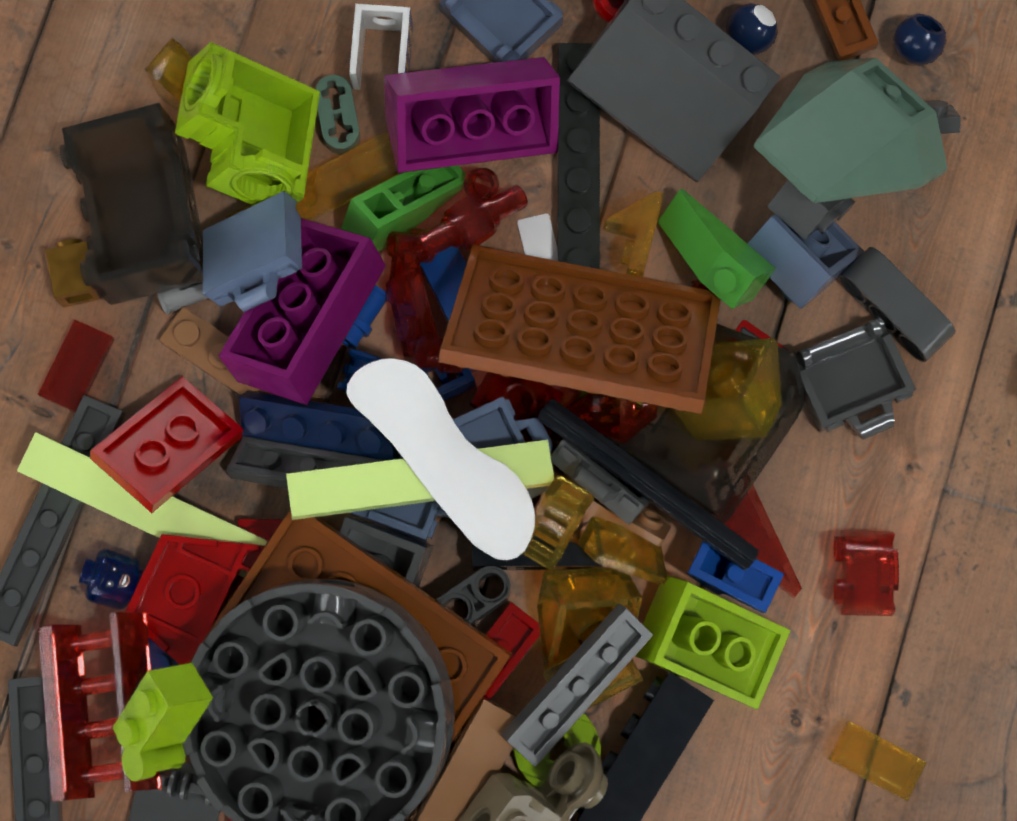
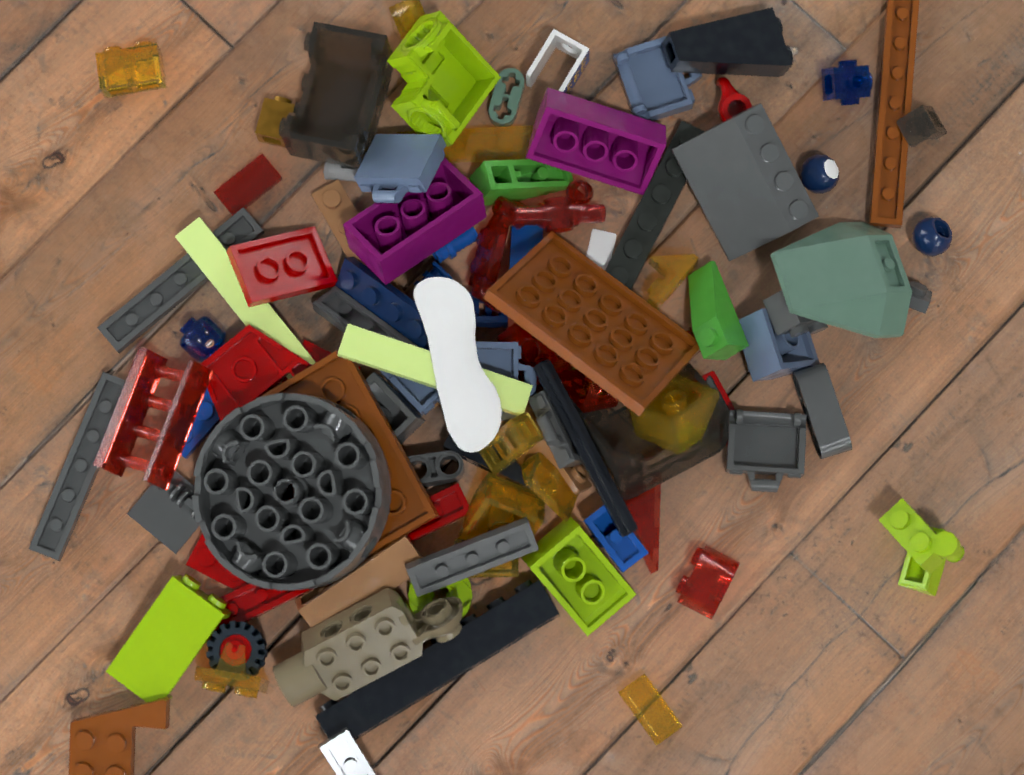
camera: 30 degrees right, 0 degrees up
(160, 720) = (188, 444): lime hinge -> none

